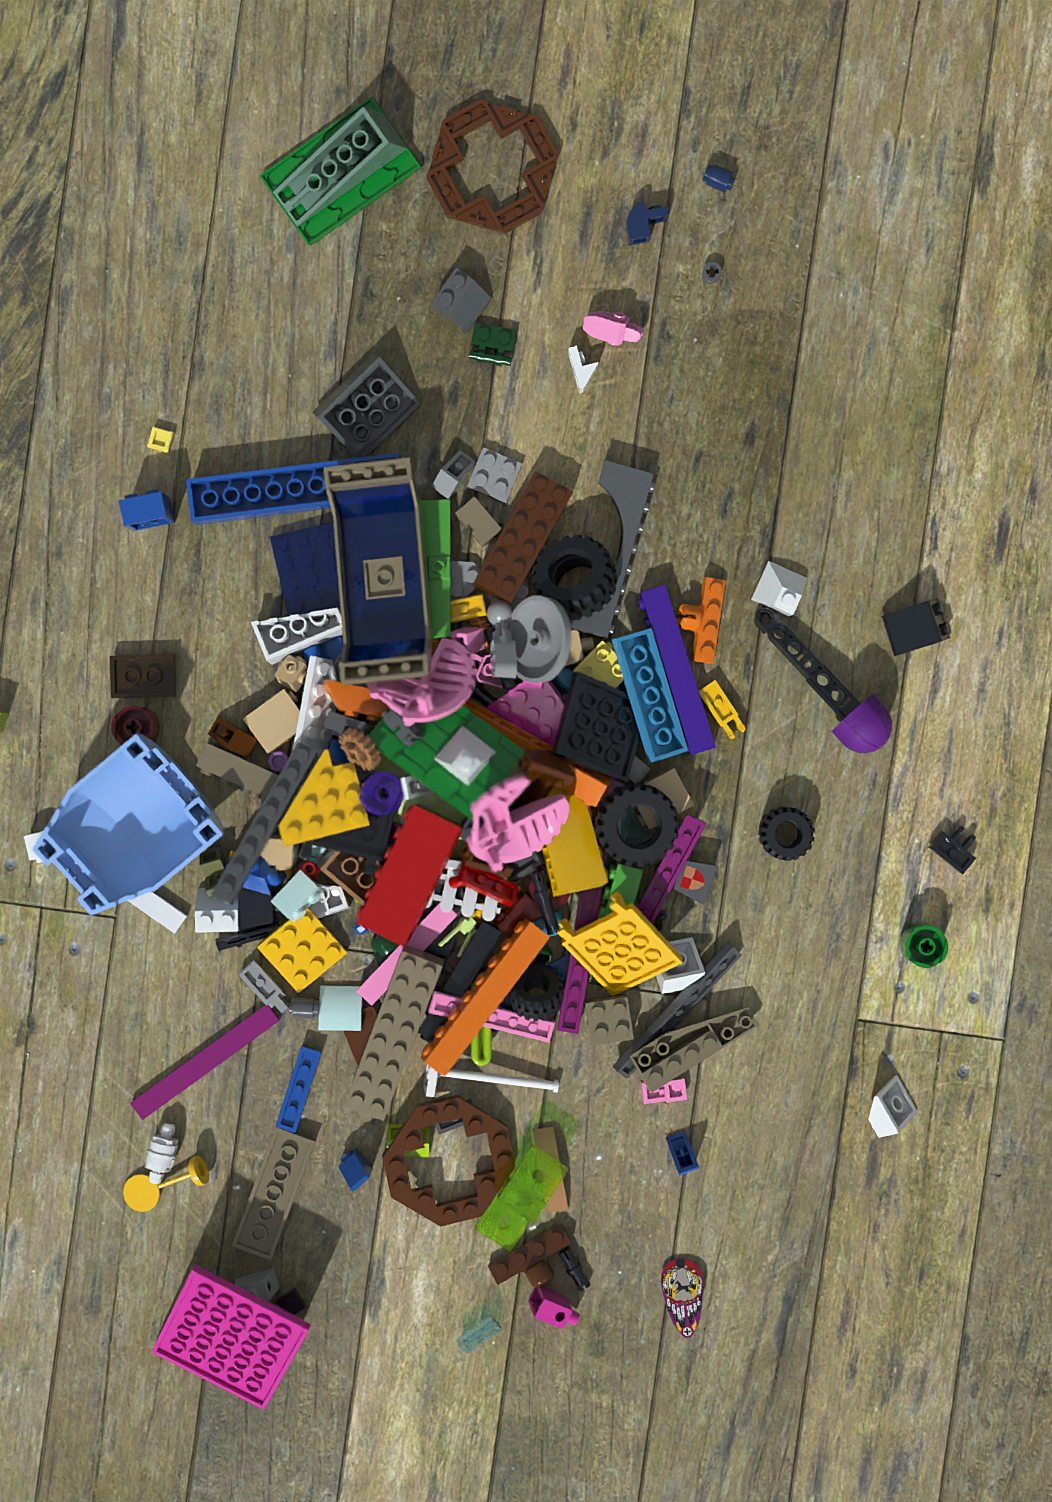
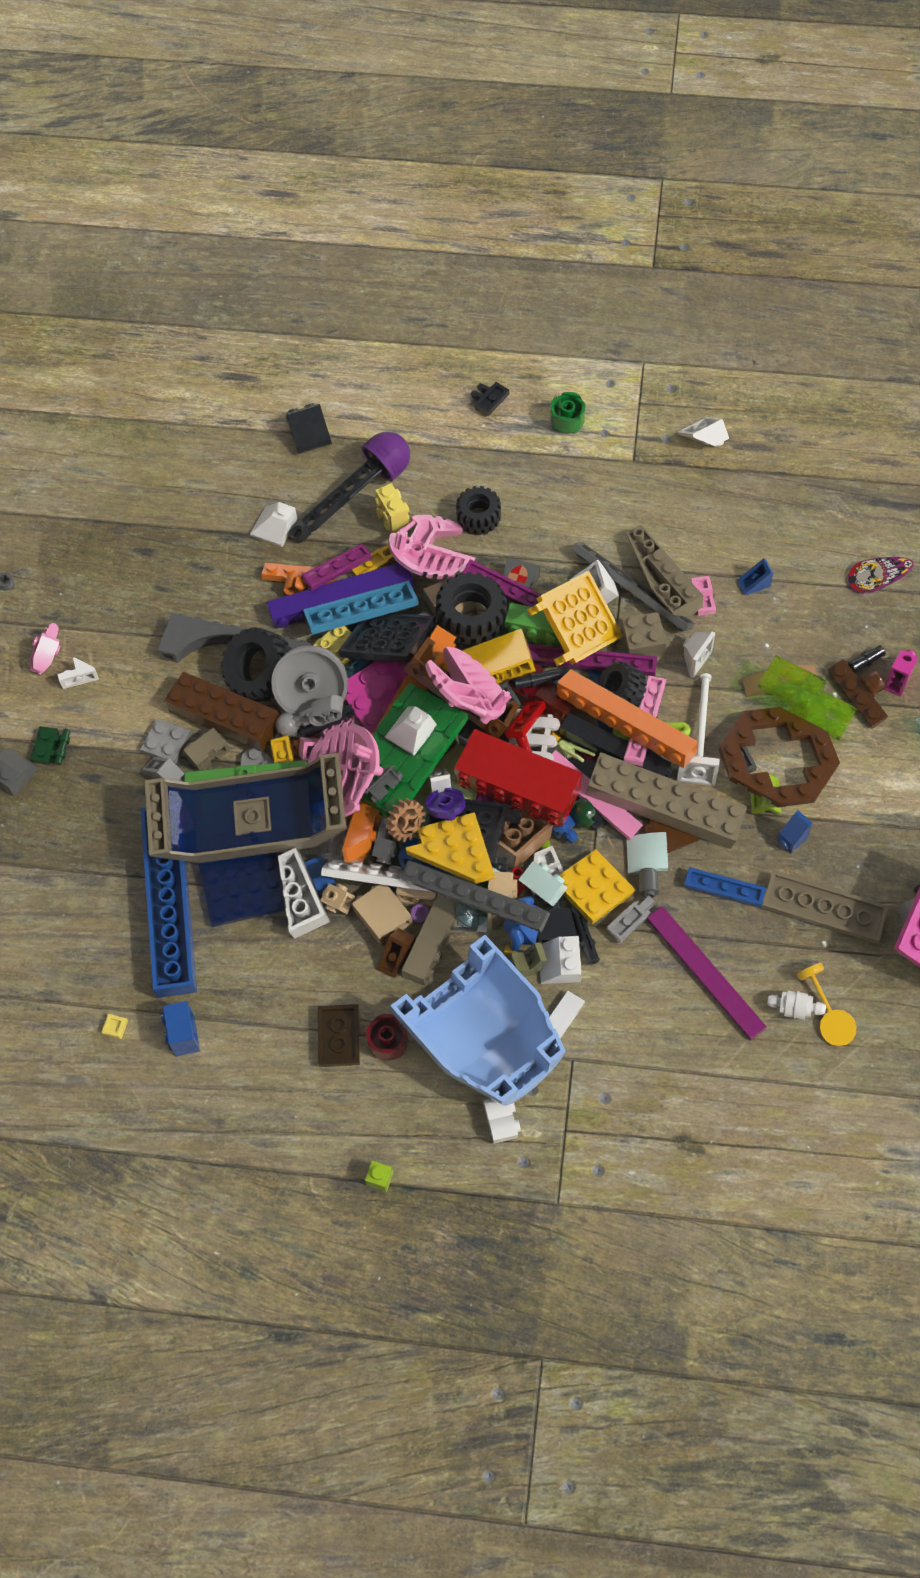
camera: 85 degrees left, 25 degrees down
(366, 407) = (96, 845): dark grey slope -> none
(585, 1079) = (698, 650): none -> white slope
(709, 666) = (336, 567): none -> magenta tile
(712, 778) = (419, 554): none -> bright pink piece
(793, 729) = (391, 508): none -> light yellow brick

